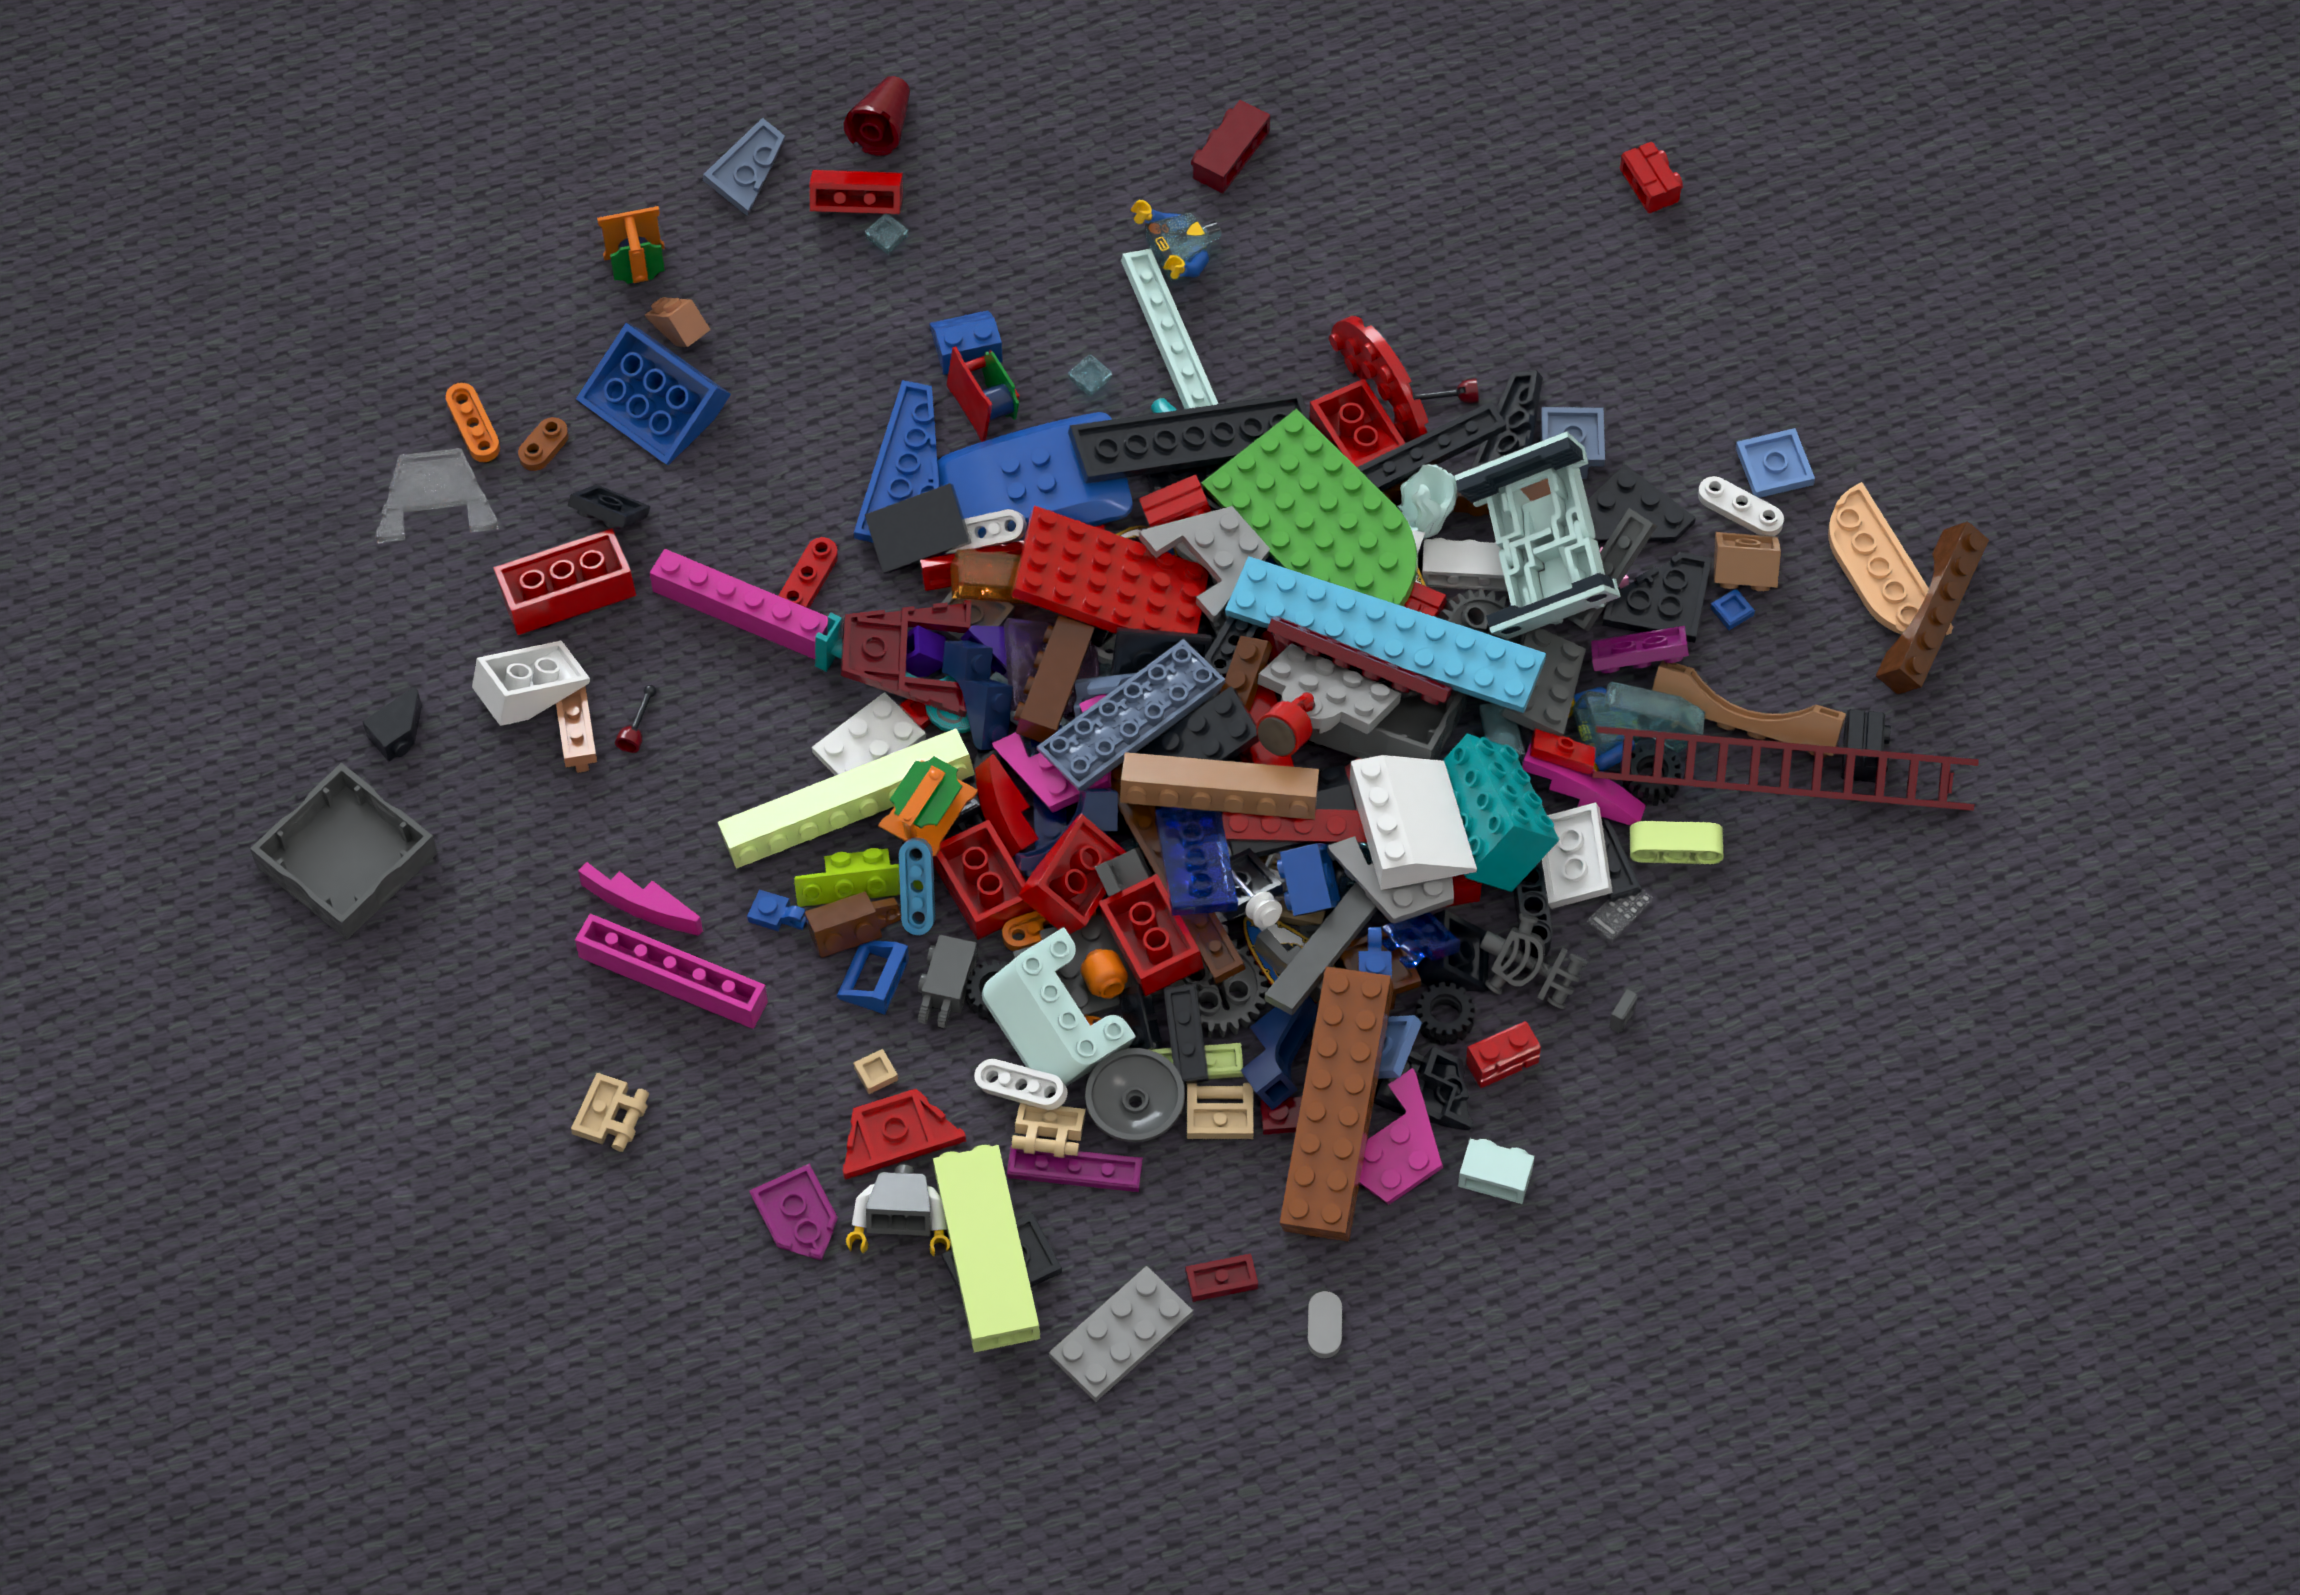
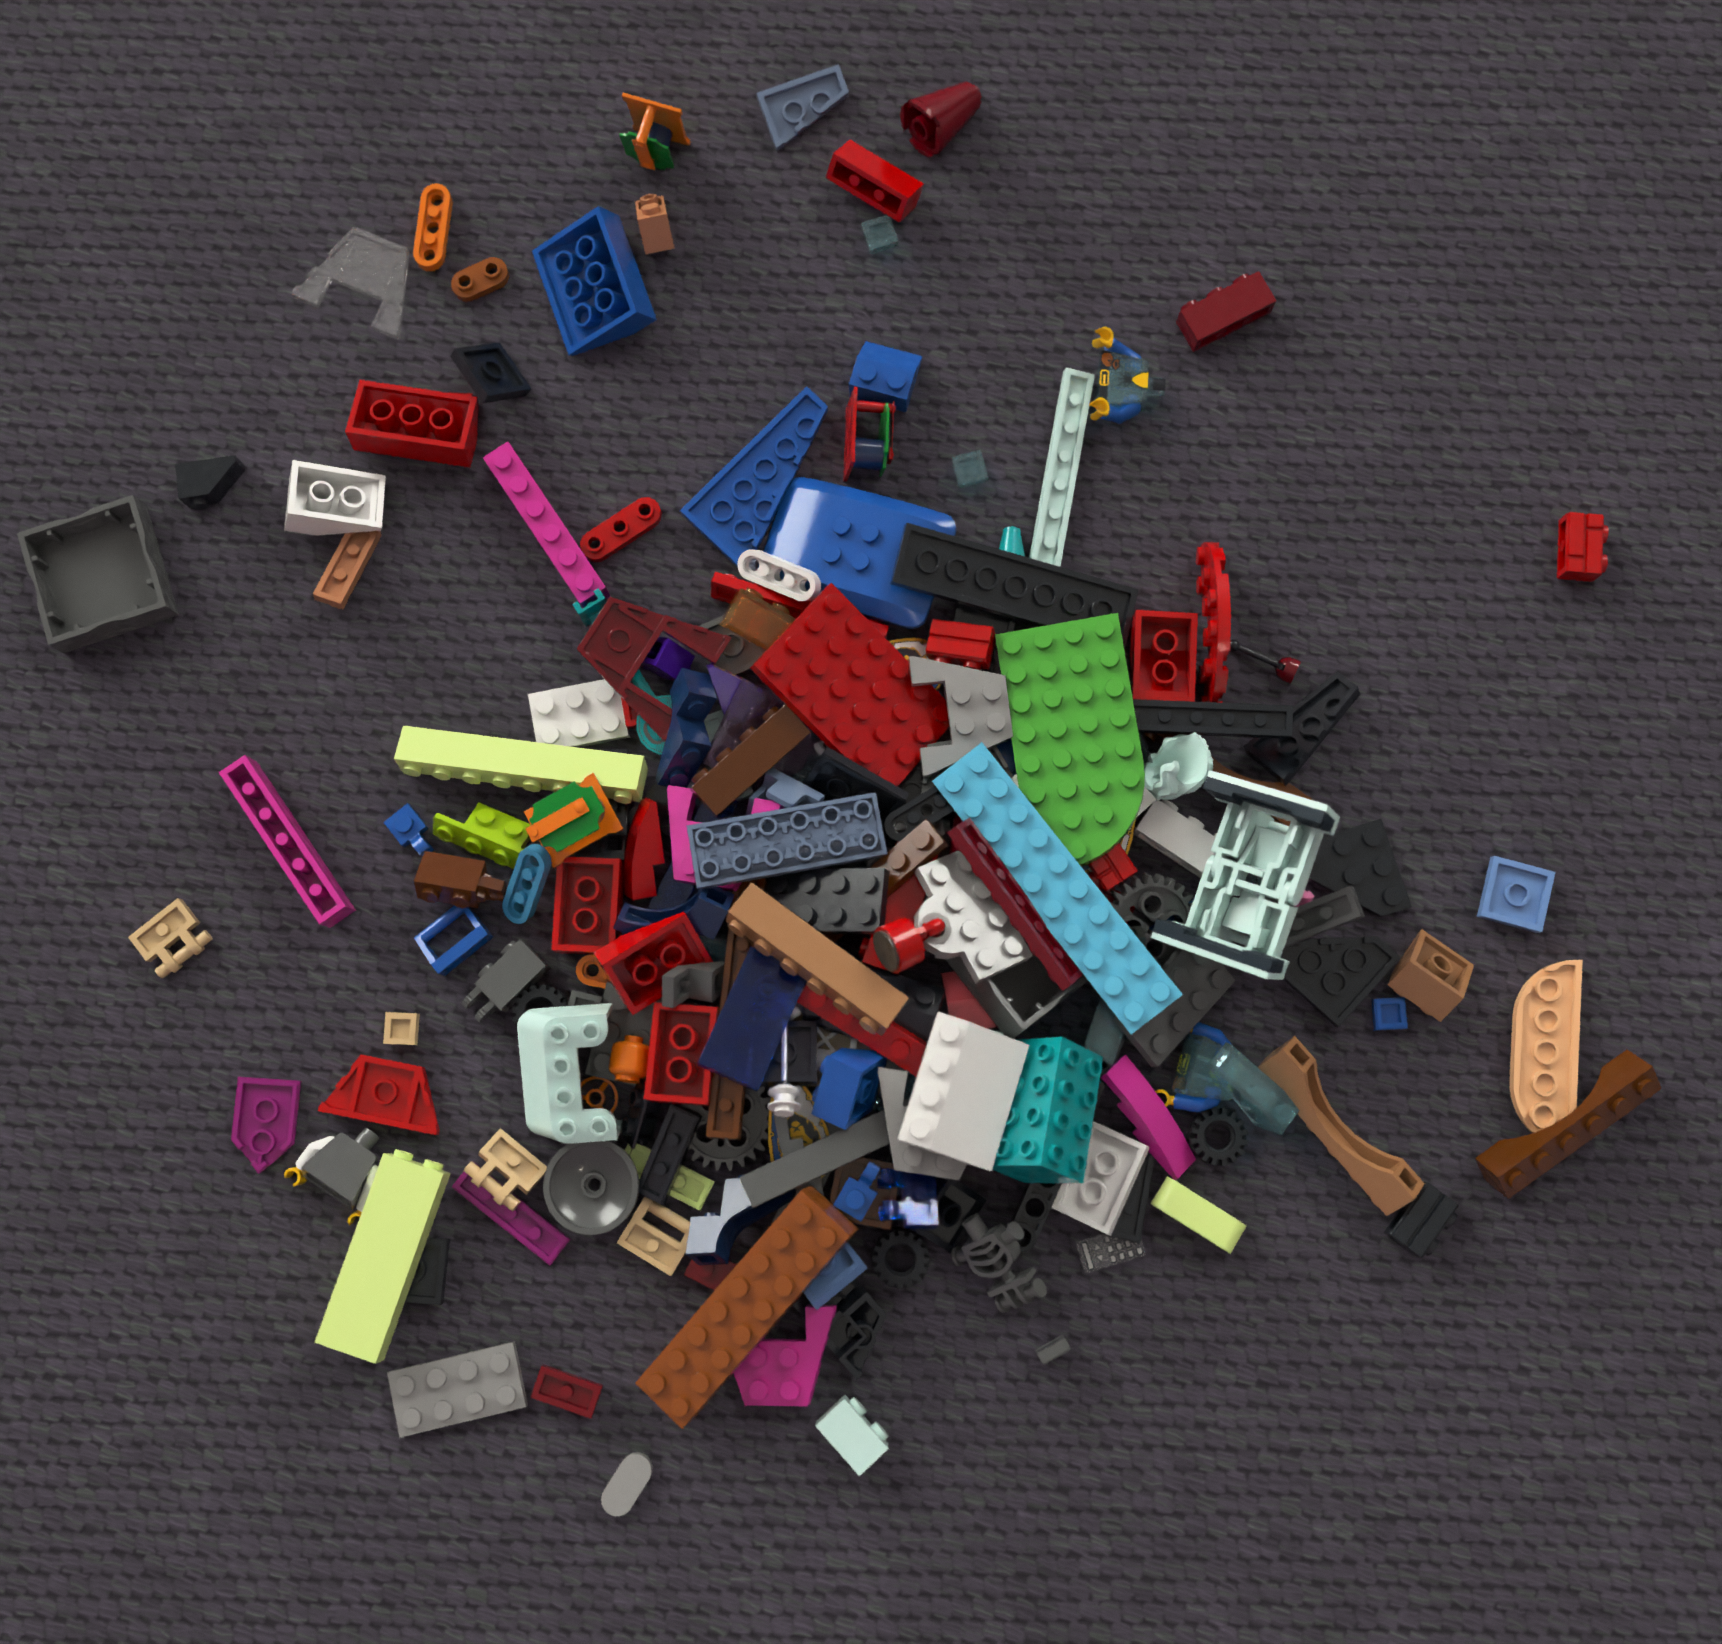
camera: 35 degrees right, 20 degrees up
(630, 737) = (389, 599): dark red hinge -> none
(649, 904) = (311, 764): dark pink slope -> none
(918, 528) = (729, 542): black tile -> none
(1013, 1076) = (496, 1111): white plate -> none
(1503, 1054) = (924, 1330): red brick -> none
(1562, 751) = (1147, 1082): red plate -> none
(1583, 424) = (1347, 773): sand blue panel -> none
(1639, 649) = (1279, 1016): magenta plate -> none
(1749, 516) = (1447, 908): white plate -> none
(1945, 780) = (1460, 1314): dark red ladder -> none

